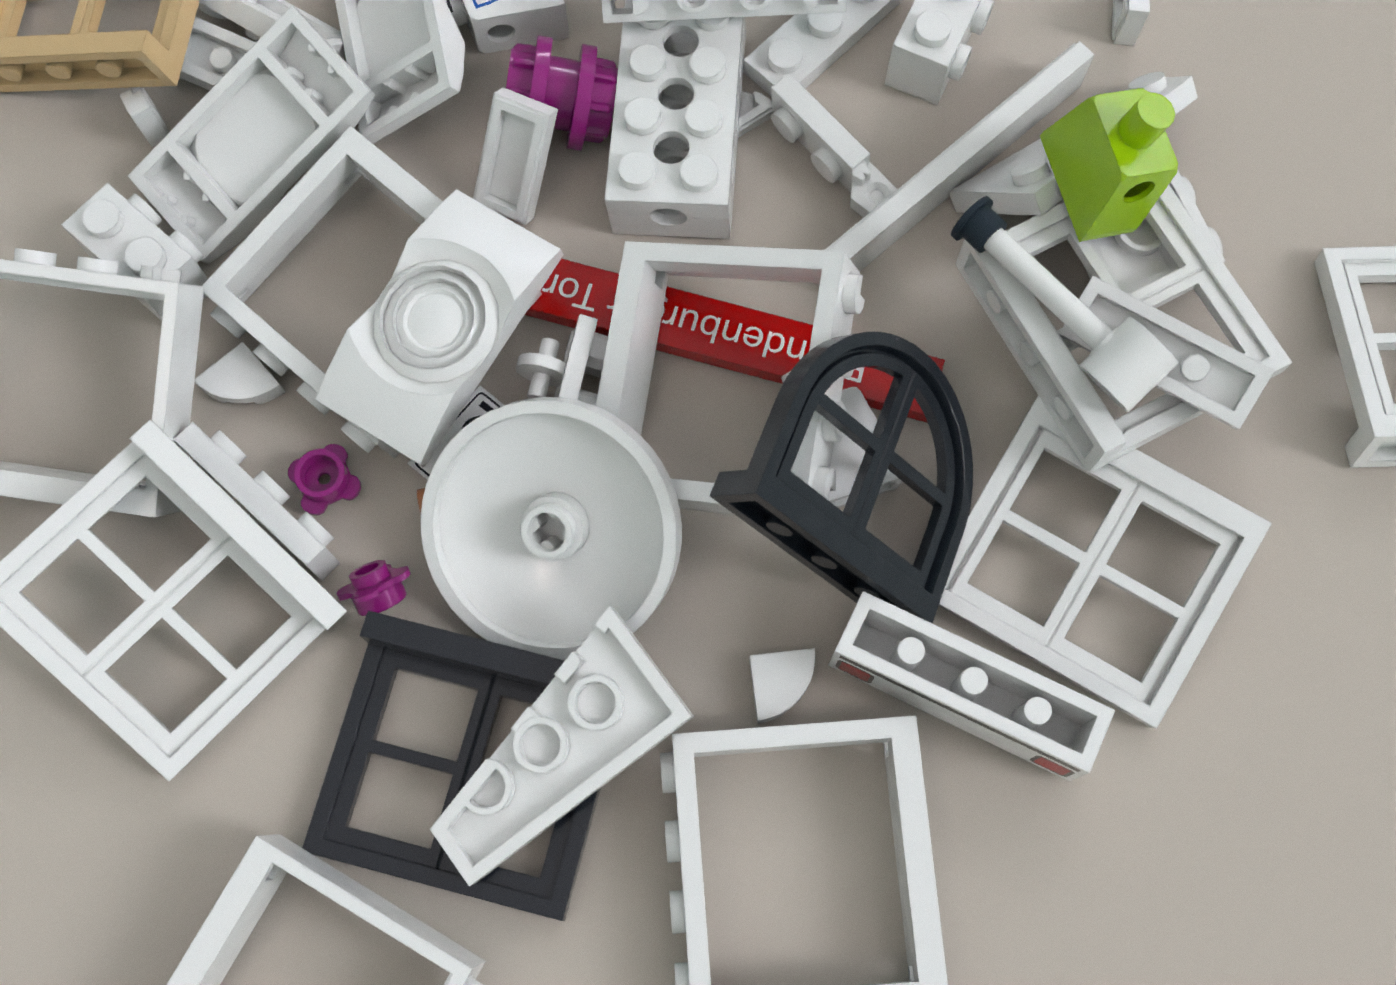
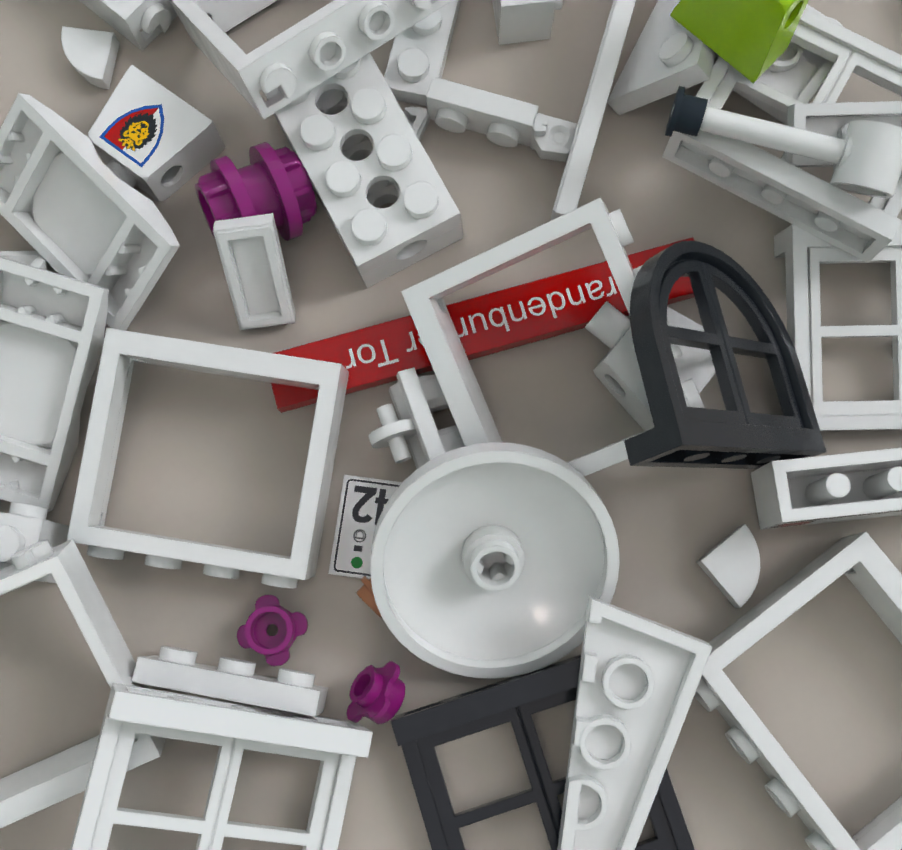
camera: 30 degrees left, 5 degrees up
(239, 379) = (146, 590): white tile -> none
(437, 325) = (293, 453): white slope -> none

